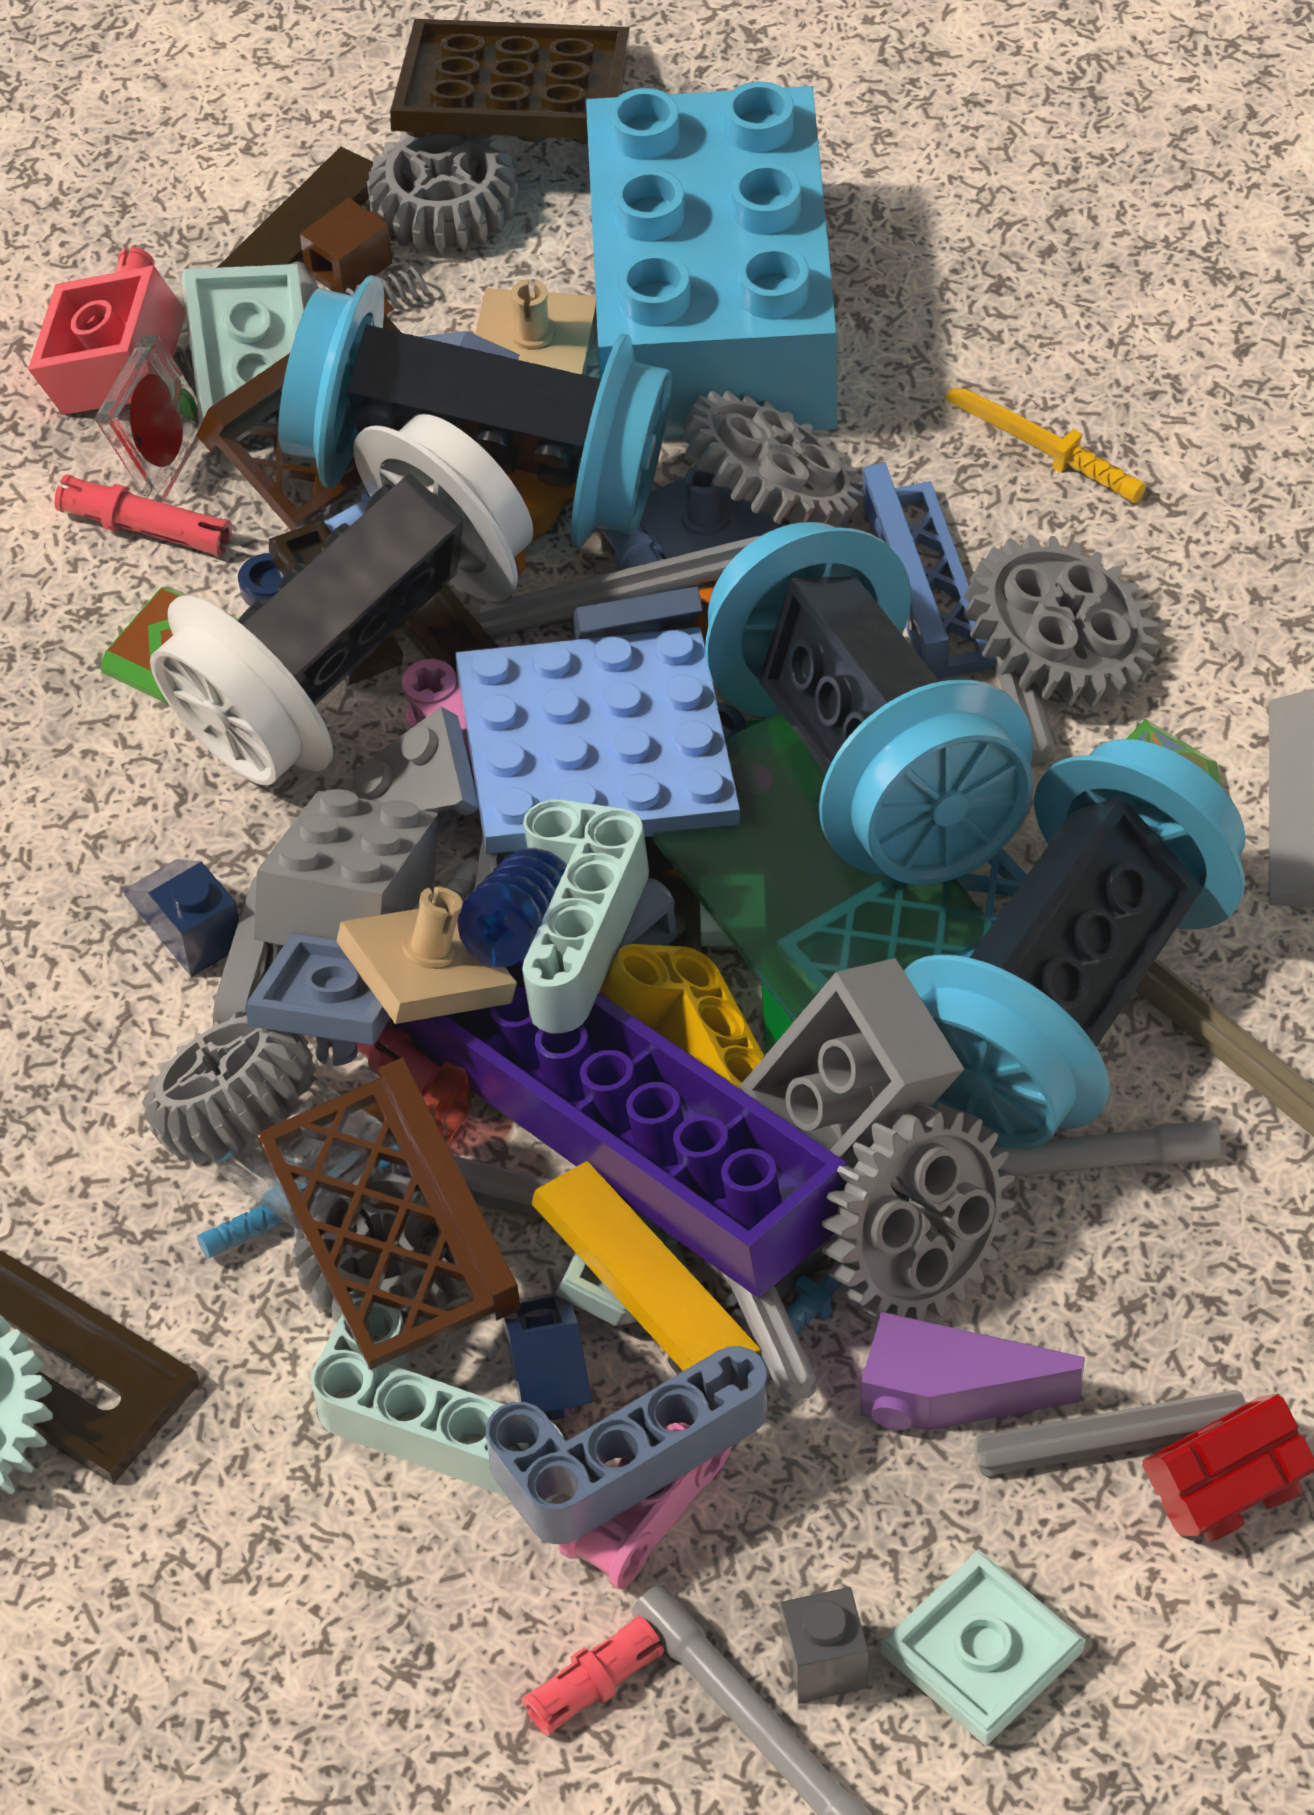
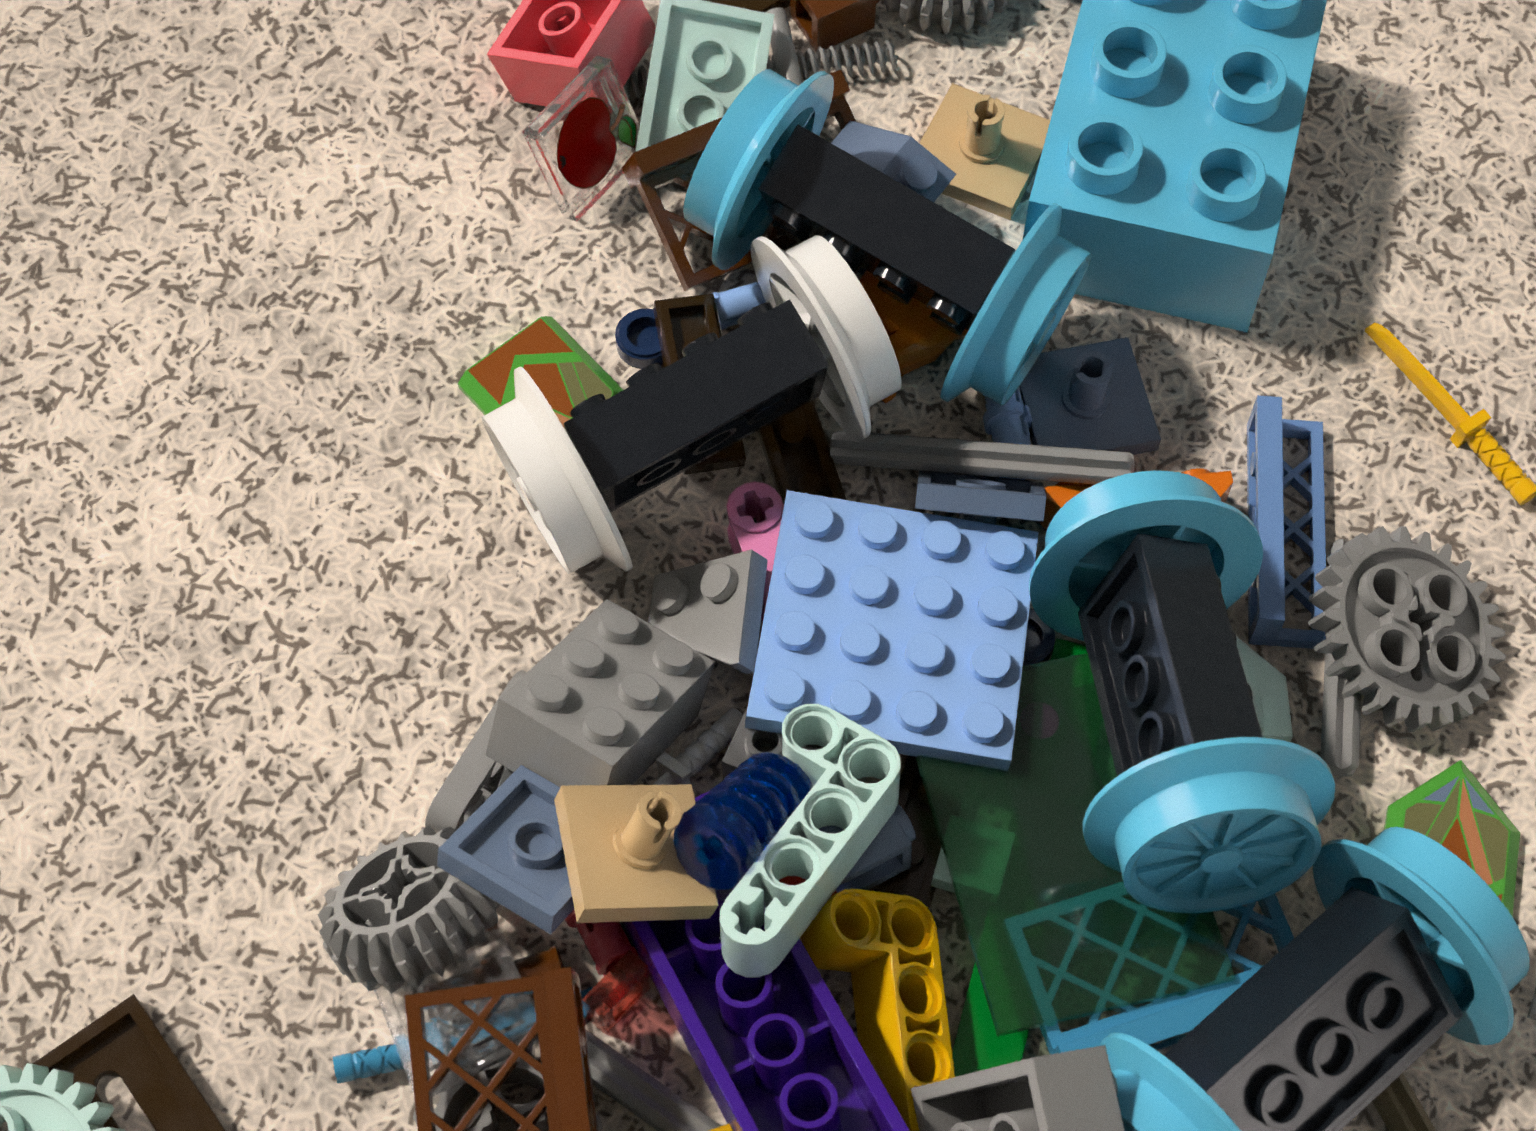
camera: 15 degrees right, 10 degrees up
(120, 509) = (531, 221): coral pin -> none
(187, 912) = (443, 682): dark blue slope -> none
(771, 460) = (1167, 364): light grey gear -> none

